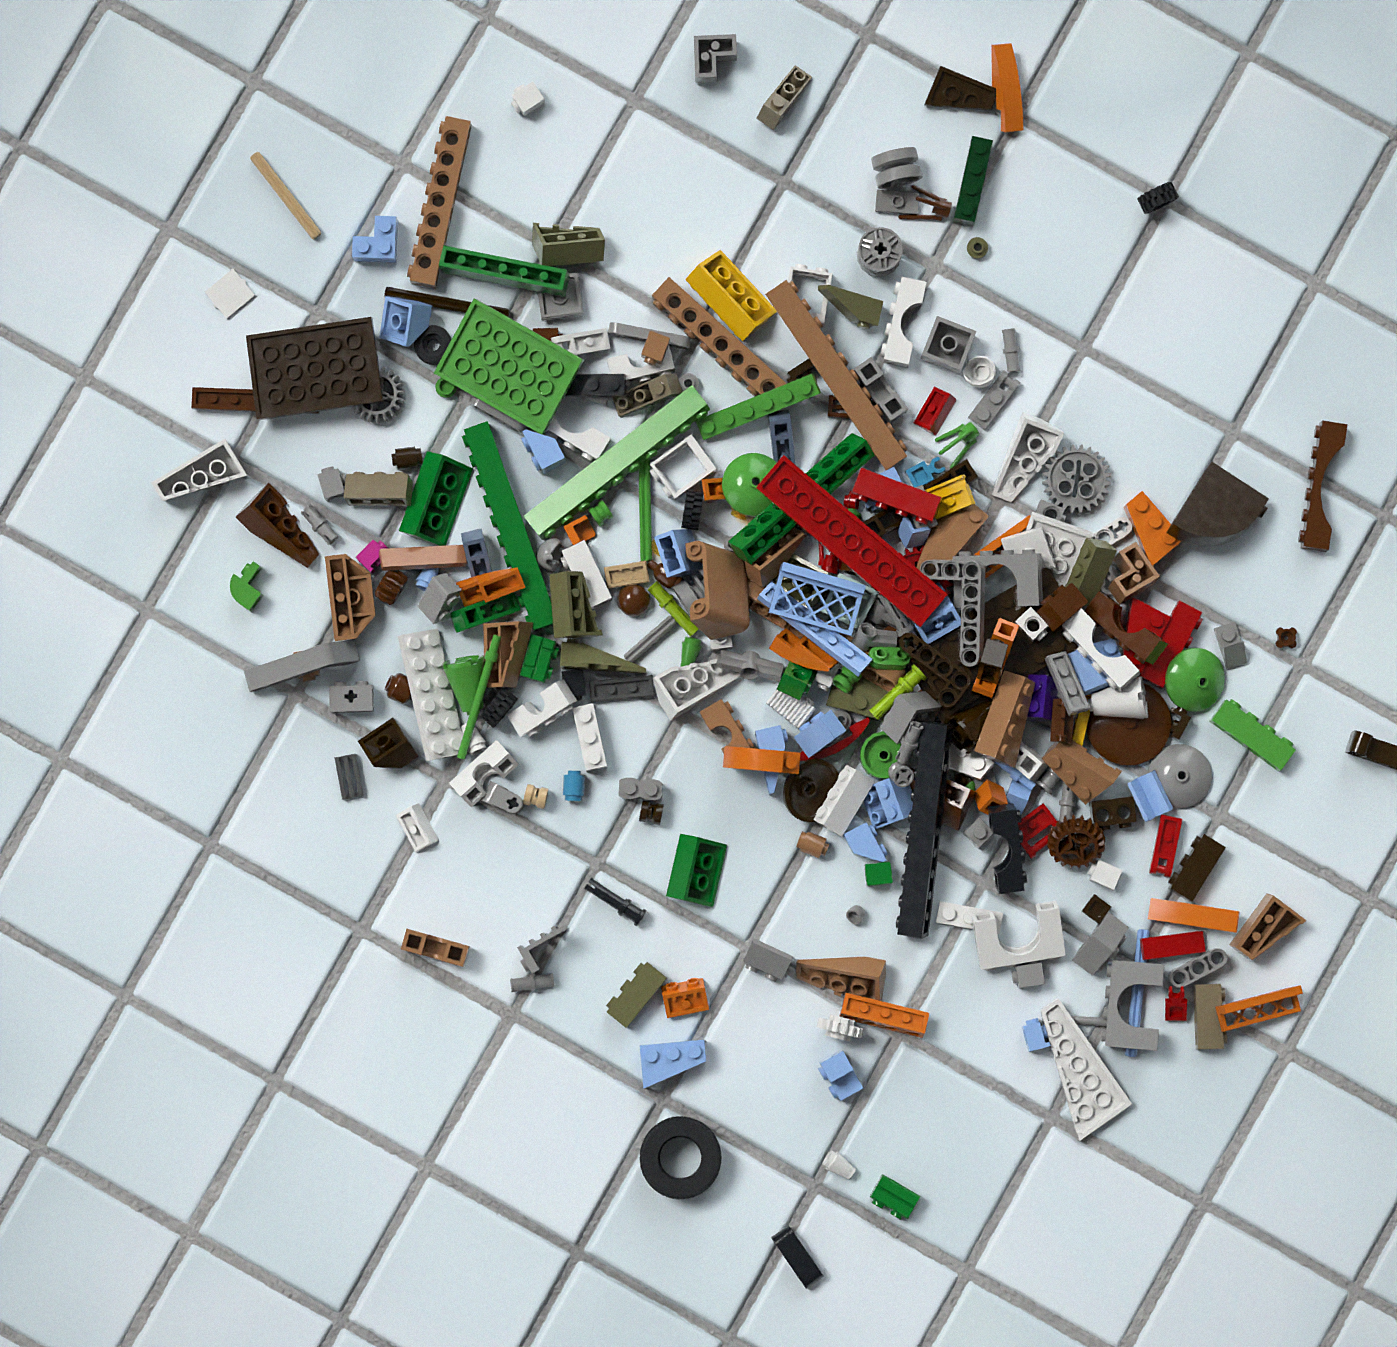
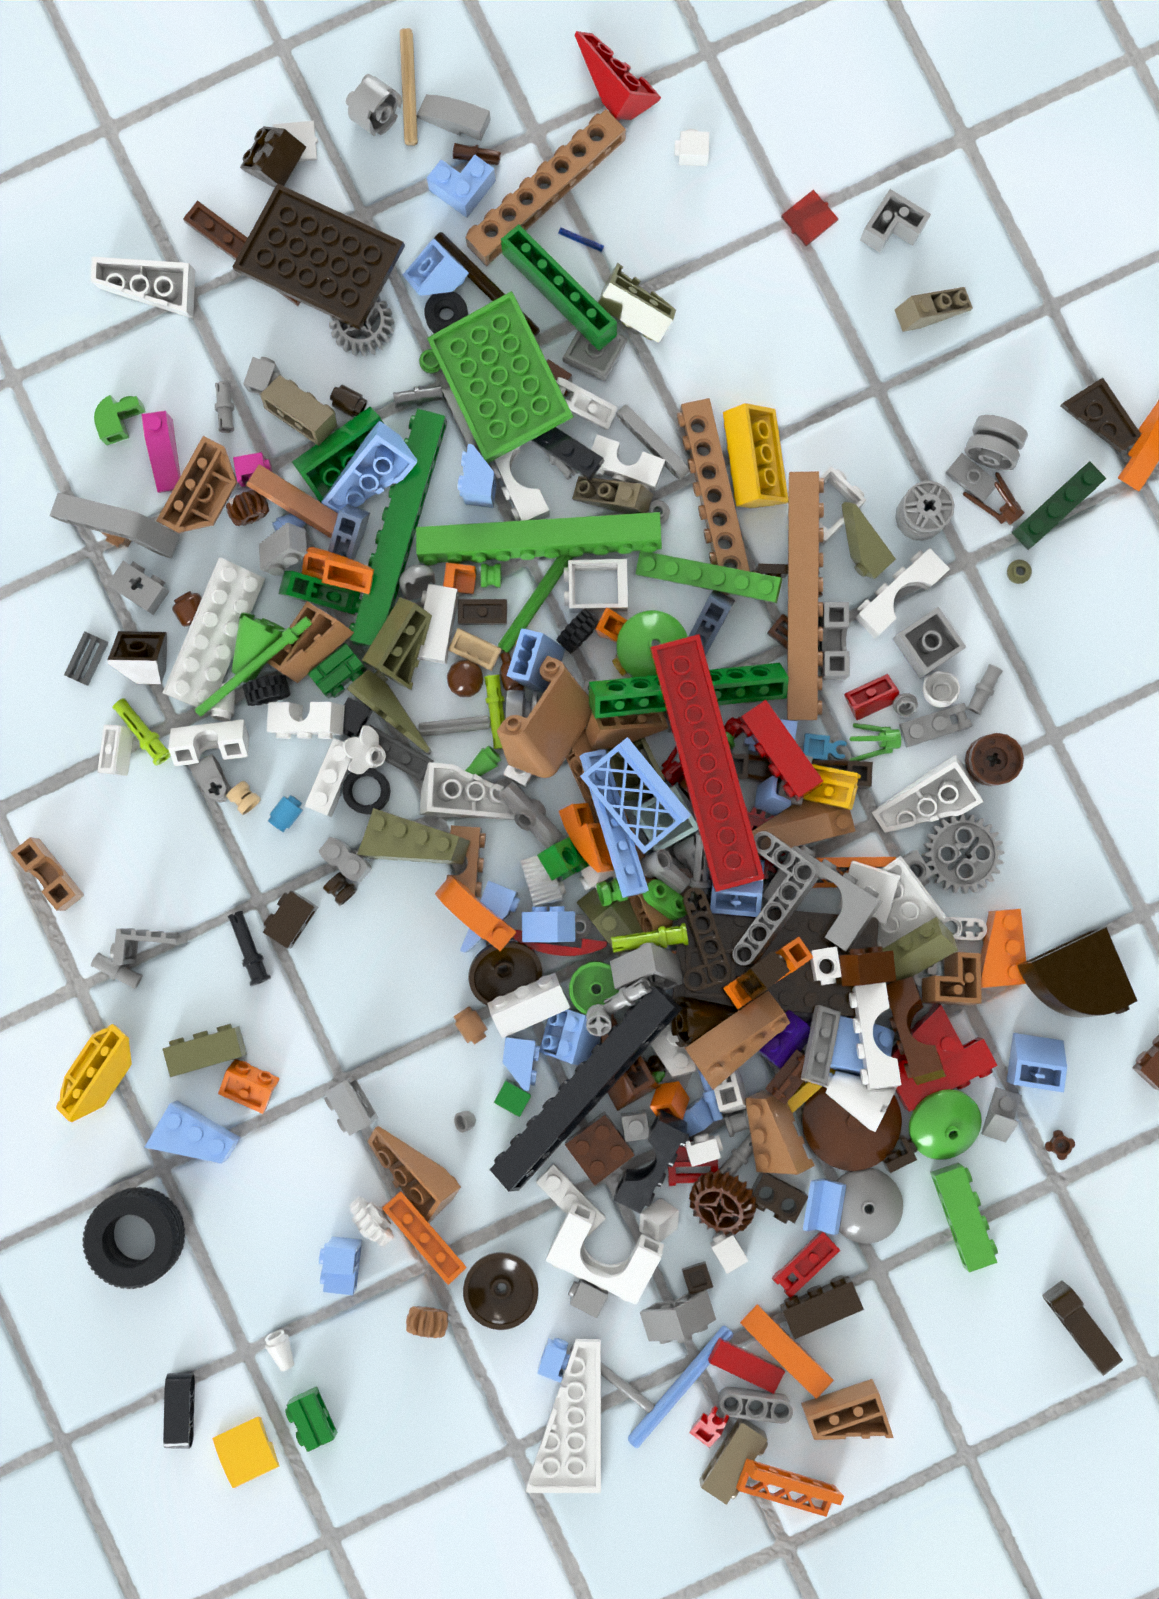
camera: 40 degrees right, 0 degrees up
(224, 316) = (273, 155): none -> dark brown slope
(272, 522) = (183, 372): reddish brown wedge -> none
(273, 229) = (373, 105): none -> light grey brick
(298, 588) = (162, 449): none -> dark pink slope
(335, 194) = (455, 115): none -> light grey slope
(371, 211) = (465, 152): none -> reddish brown axle
(438, 802) = (148, 740): none -> lime pin
(440, 90) = (617, 87): none -> red wedge
(455, 419) = (417, 396): none -> flat silver pin
(462, 492) = (374, 466): none -> light blue wedge
(490, 221) = (578, 238): none -> clear blue piece
(569, 1062) = (95, 1073): none -> yellow wedge
(601, 701) = (361, 751): none -> white plate
(613, 543) = (482, 611): none -> dark brown plate
(620, 714) = (366, 809): none -> black tyre
(631, 859) = (289, 919): none -> dark brown brick
(647, 90) = (809, 217): none -> clear red piece
(655, 348) = (649, 453): medium nougat brick -> none
(674, 744) = (406, 840): none -> olive wedge
(696, 870) = (343, 973): green slope -> none
(864, 1252) = (245, 1452): none -> yellow slope
(928, 1071) = (427, 1322): none -> medium nougat gear
(962, 400) = (905, 709): none -> light grey plate
(964, 865) = (599, 1148): none -> reddish brown brick
(980, 1015) = (500, 1308): none -> dark brown dish
(1036, 814) = (703, 1149): none -> white brick
(1041, 887) = (659, 1220): none -> white panel
(1057, 386) = (1006, 753): none -> reddish brown wheel
(1118, 1032) = (635, 1416): light grey arch -> none
(1229, 590) = (1037, 1062): none -> light blue slope

